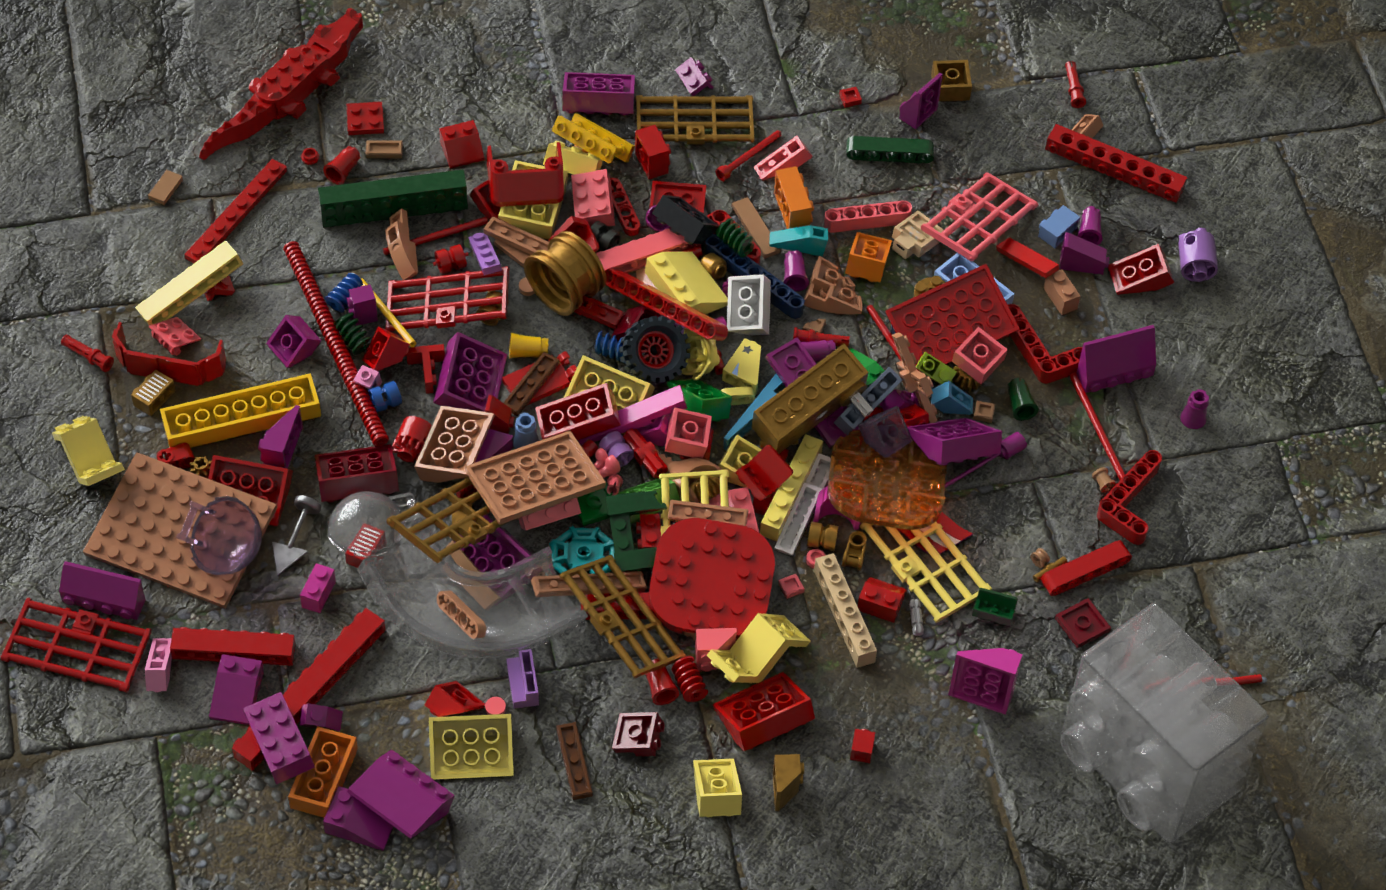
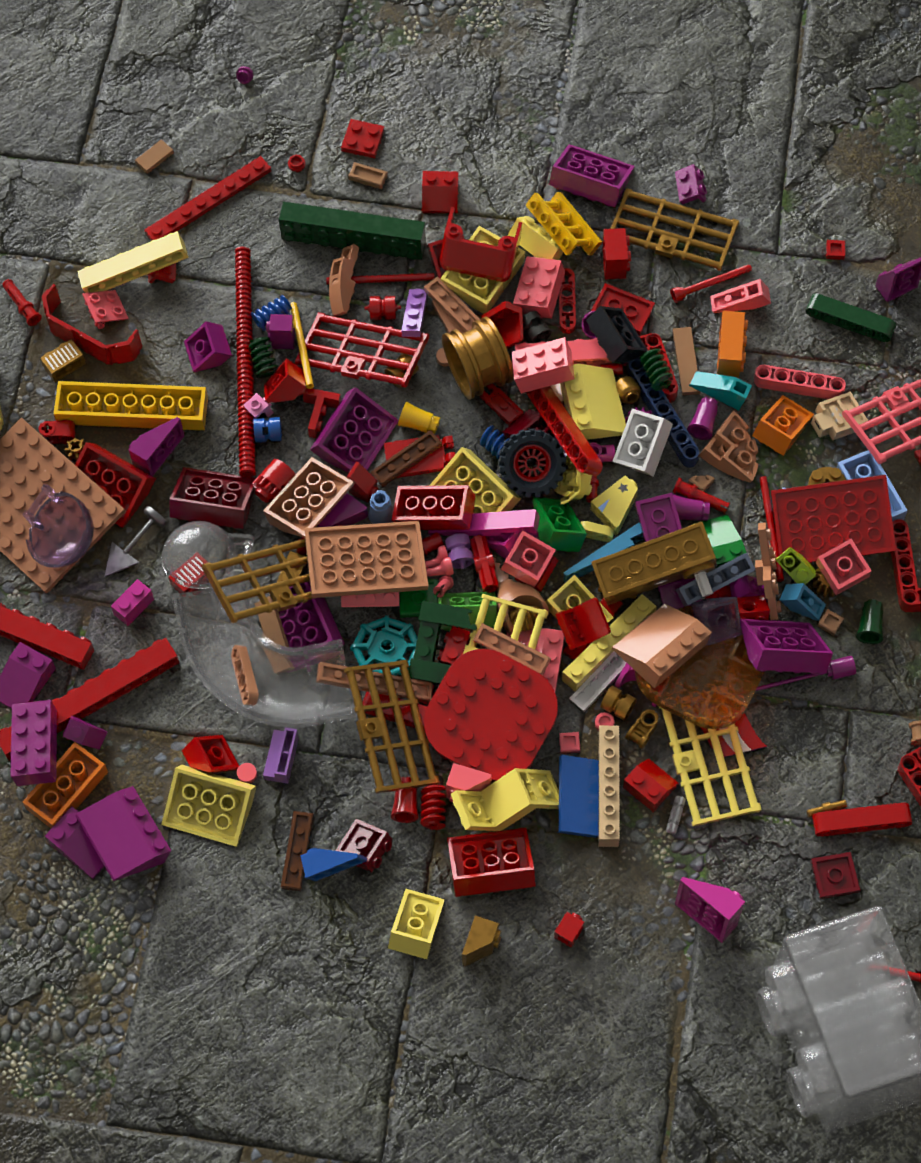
camera: 25 degrees right, 10 degrees up
(225, 91) = (244, 75): none -> magenta plate
(290, 82) = (307, 81): red animal -> none
(341, 165) = (321, 181): red plant -> none
(611, 757) = (324, 863): none -> blue slope
(631, 260) = (542, 365): none -> coral brick
(821, 628) = (578, 796): none -> blue tile
(847, 465) = (662, 643): none -> nougat slope
(995, 607) = (754, 831): dark green bracket -> none
(1040, 558) = (821, 794): medium nougat bush -> none

